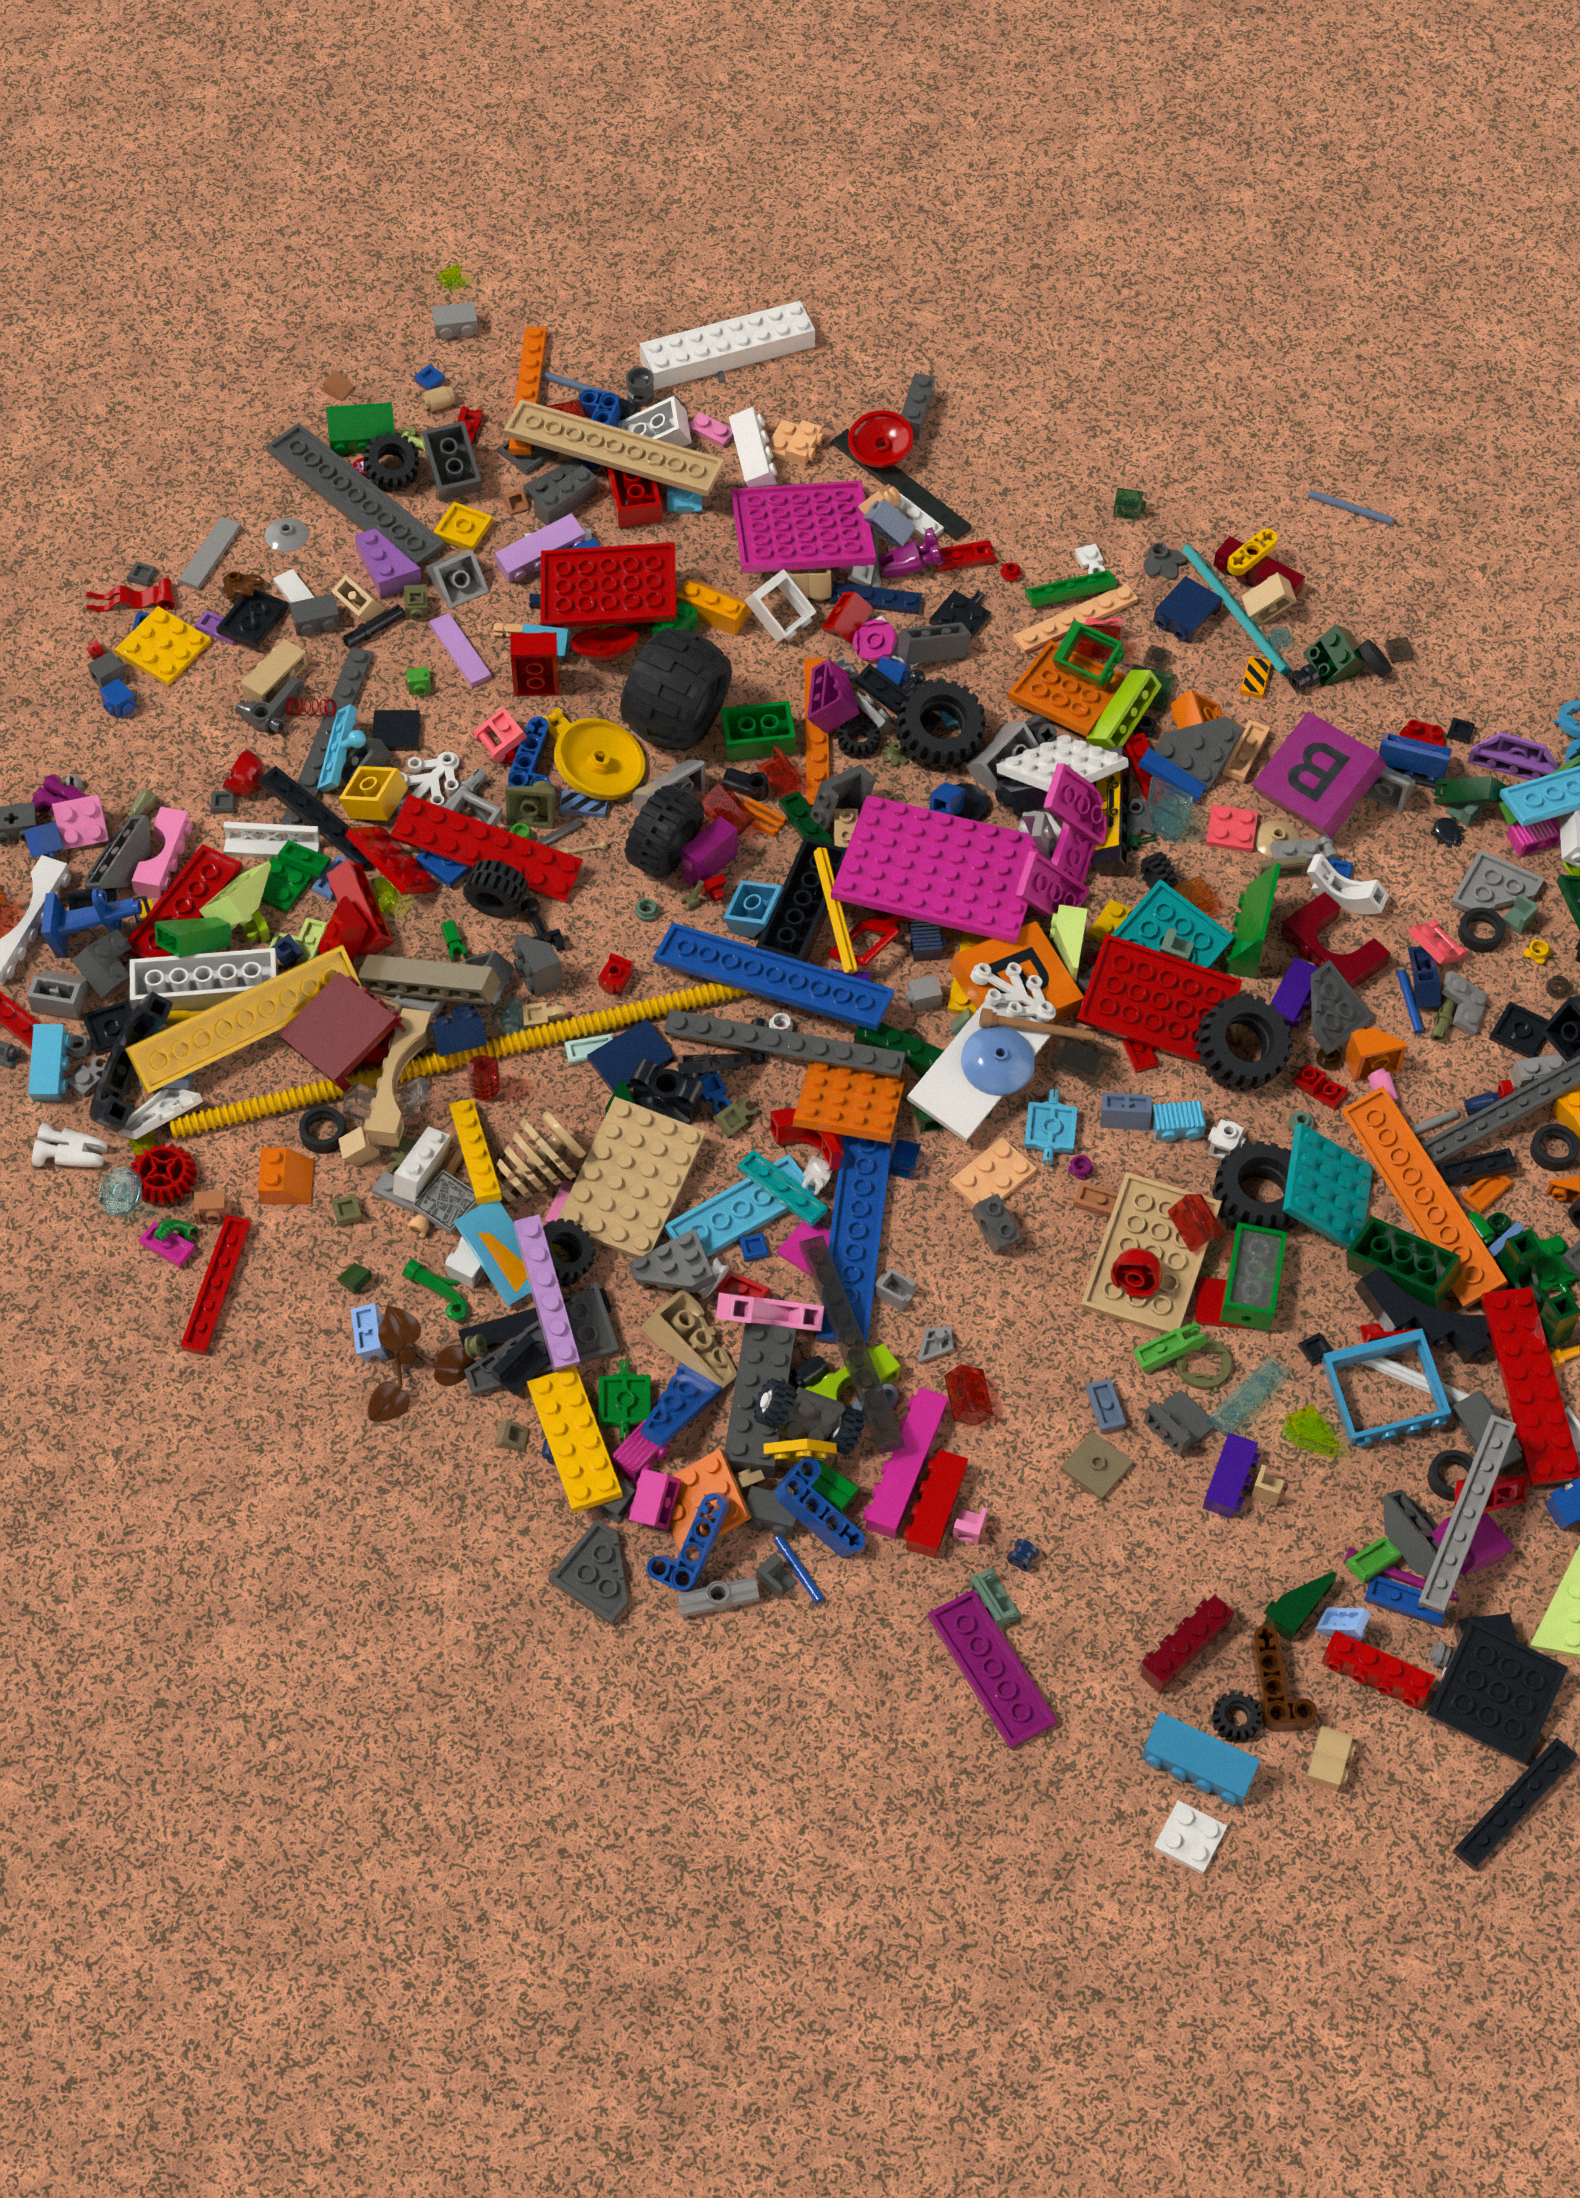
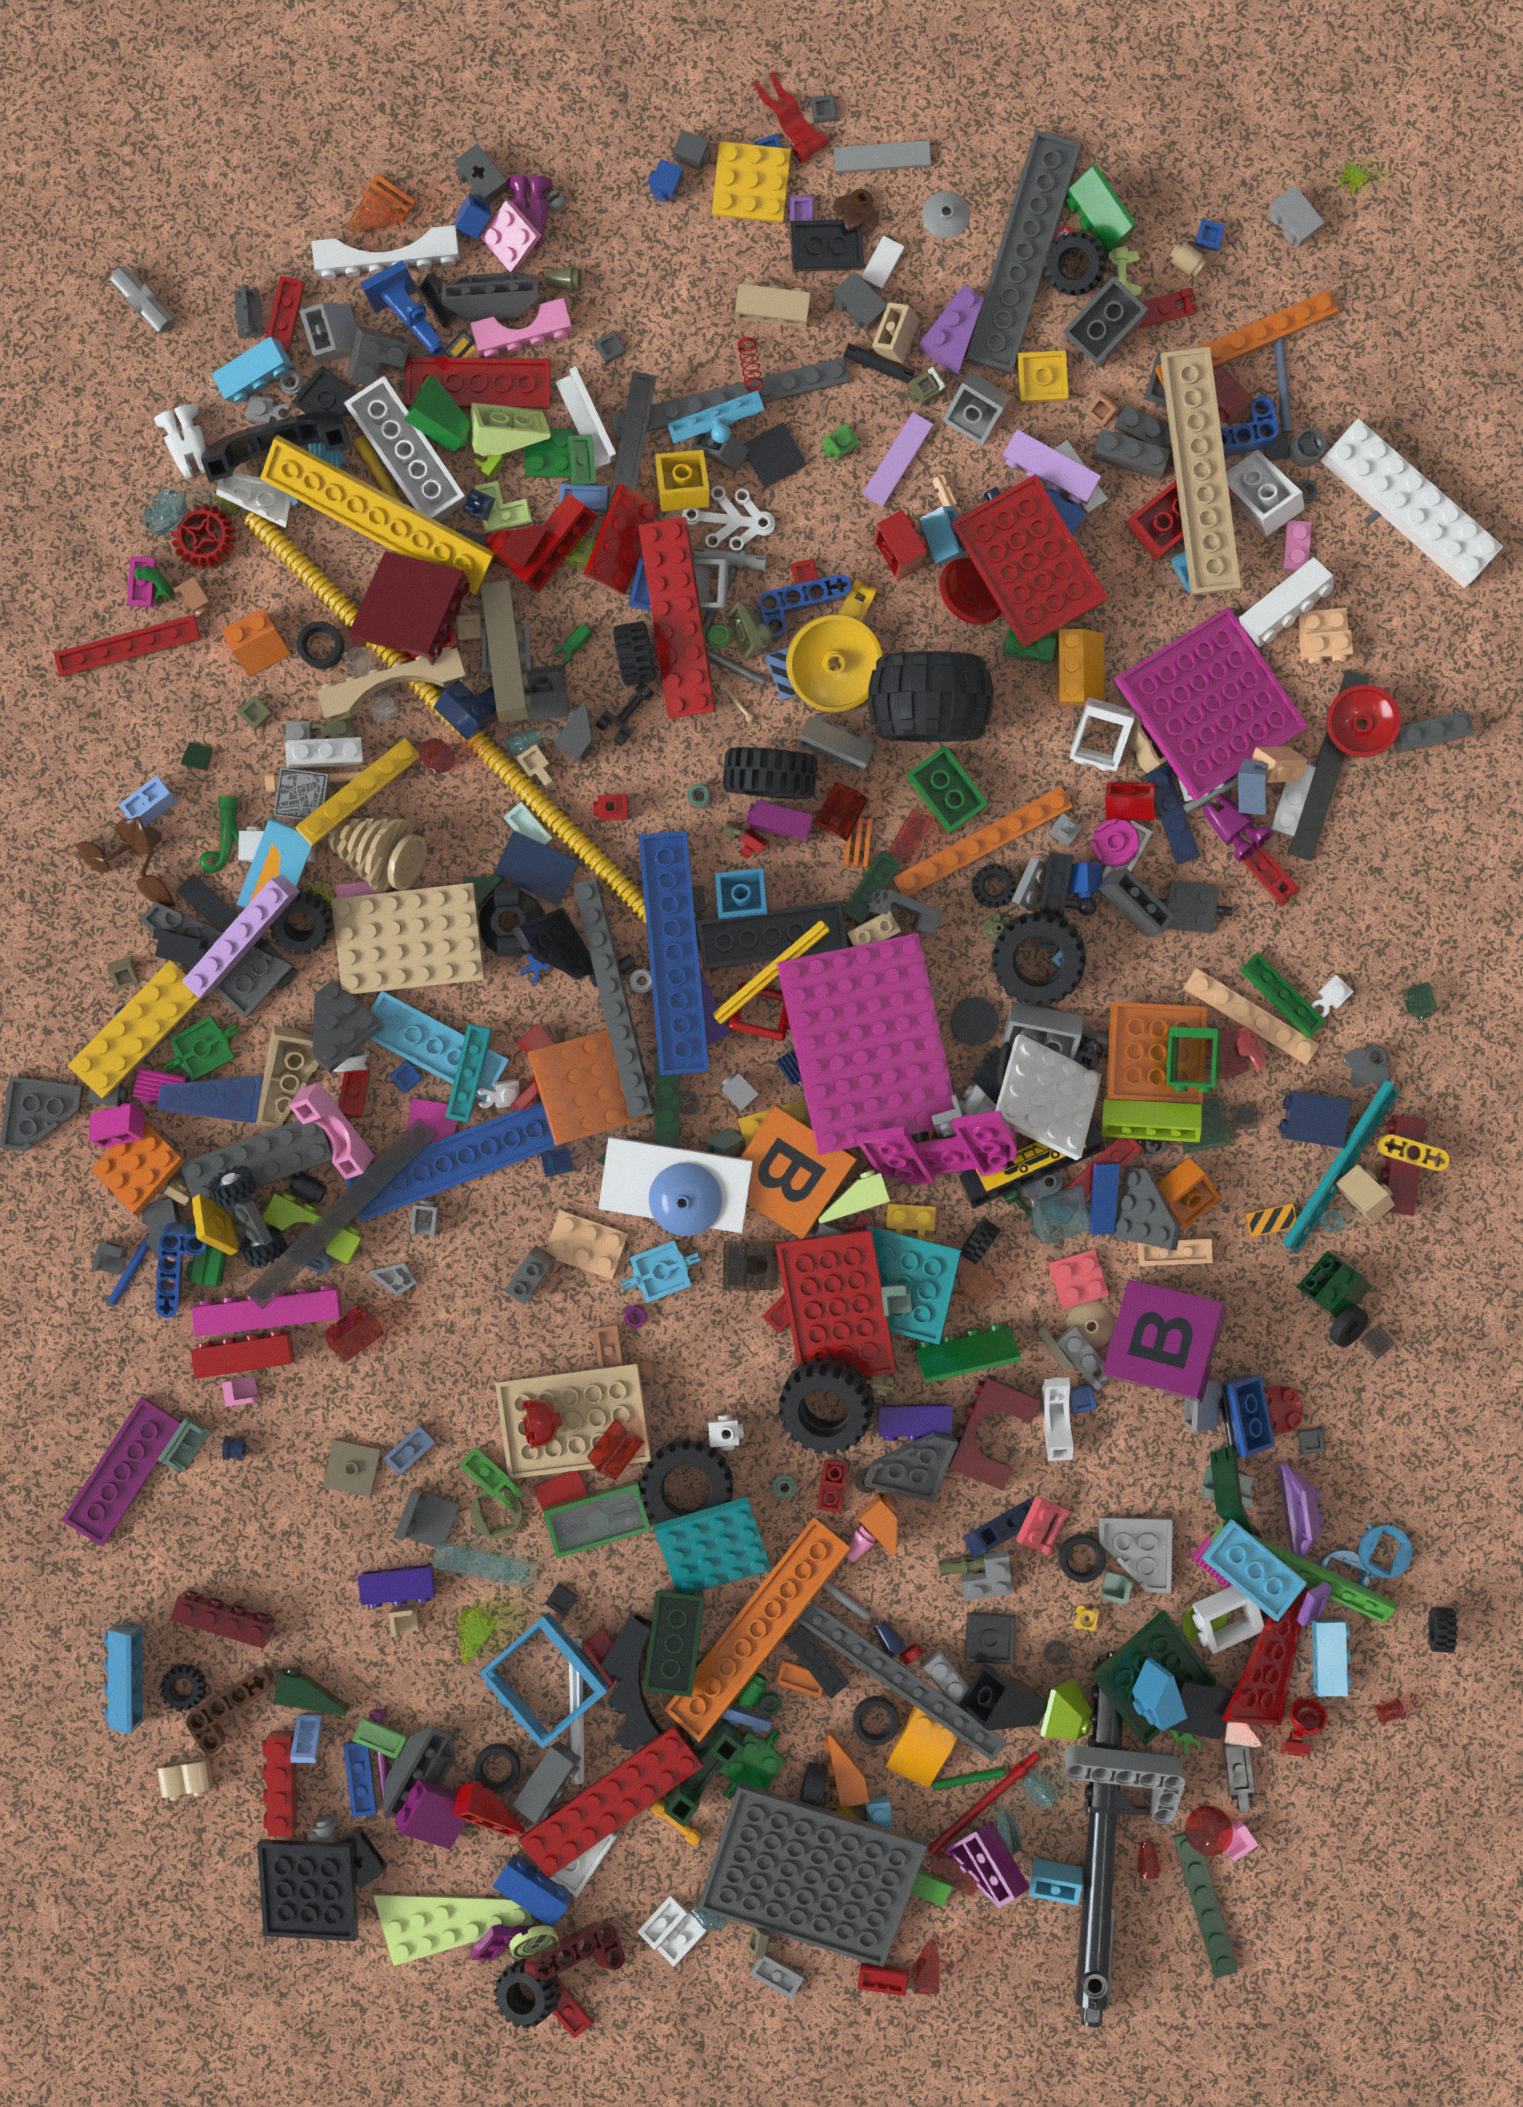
camera: 65 degrees right, 30 degrees up
(95, 649) = (709, 121): red plate -> none
(245, 774) = (642, 352): red cylinder -> none
(268, 716) = (720, 312): dark grey piece -> none
(337, 386) = (1151, 152): nougat slope -> none
(356, 1148) = (310, 683): tan panel -> none
(475, 1346) = (178, 899): olive bush -> none
(505, 729) = (819, 558): coral plate -> none
(694, 1538) = (69, 1181): blue beam -> none
(734, 1116) = (521, 990): olive plate -> none
(734, 1594) = (55, 1209): light grey piece -> none
(753, 785) = (884, 808): black piece -> none
(830, 697) = (1017, 839): magenta wedge -> none
(947, 799) = (955, 1008): blue brick -> none
(990, 1018) = (717, 1174): medium nougat piece -> none
(1010, 575) = (1268, 927): red plate -> none
(1038, 1008) = (762, 1182): white plant -> none
(1125, 1111) = (711, 1329): sand blue hinge -> none
(1178, 1121) = (725, 1380): medium azure brick -> none
(1190, 1837) = (64, 1695): white plate -> none
(1303, 678) = (1291, 1267): black wheel -> none
(1410, 1001) = (969, 1526): blue bar -> none
(1448, 832) = (1182, 1479): black piece -> none
(1467, 1514) = (433, 1811): light grey plate -> none
(1515, 1804) = (225, 1940): black plate -> none

